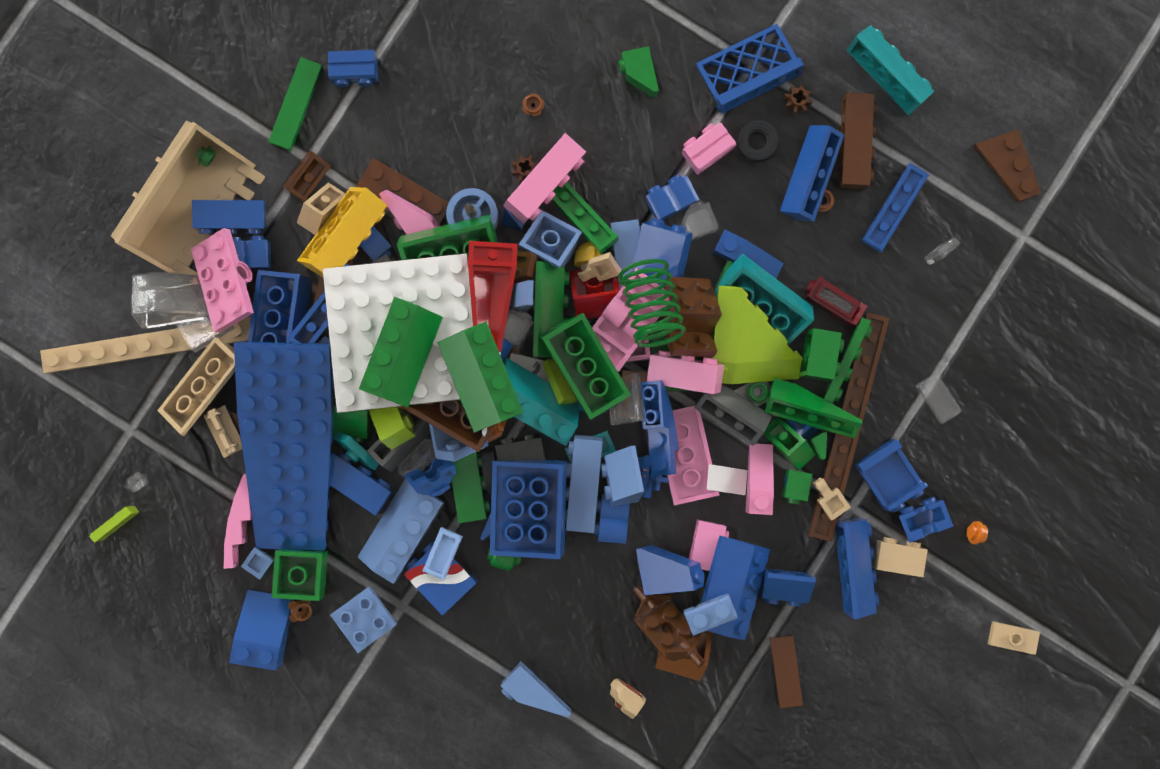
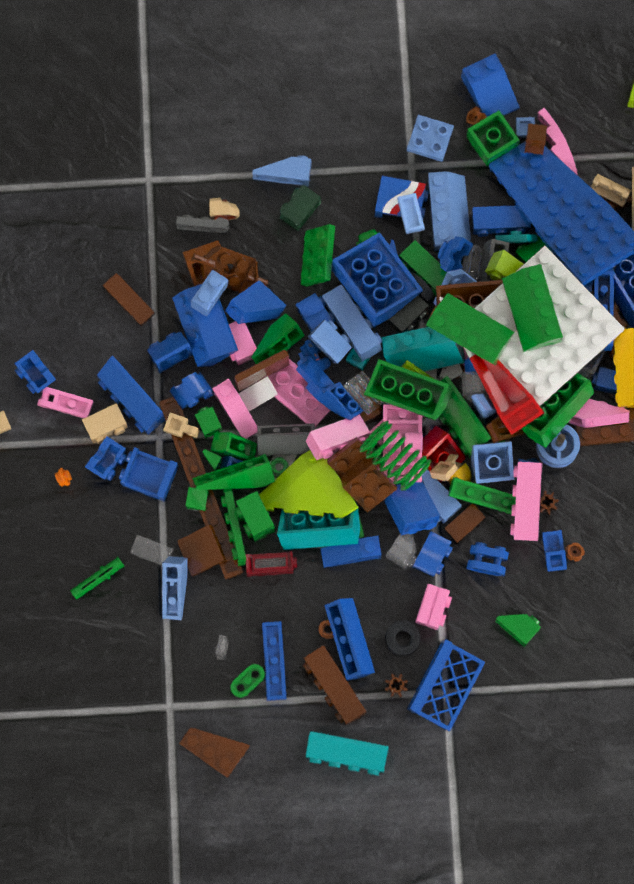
camera: 150 degrees right, 10 degrees down
(257, 540) = (535, 139): none -> reddish brown brick
(547, 643) = (300, 207): none -> clear green brick
(552, 120) = (554, 550): none -> blue slope
(567, 578) = (317, 255): none -> green plate
(609, 154) = (497, 554): none -> blue brick
(618, 207) = (464, 523): none -> reddish brown tile
(656, 697) = (203, 224): none -> dark grey hinge
(671, 519) = (279, 337): none -> green slope
(712, 496) = (261, 370): none -> reddish brown tile
(791, 529) = (191, 389): none -> blue cylinder
(866, 412) = (196, 499): none -> green slope
(892, 362) = (201, 550): none -> reddish brown tile
(922, 607) = (66, 403): none -> bright pink plate
(933, 661) = (34, 372): none -> blue cylinder
(934, 206) = (247, 680): none -> green plate
(943, 346) = (173, 587): none -> medium blue slope
(1011, 408) = (78, 591): none -> green pin

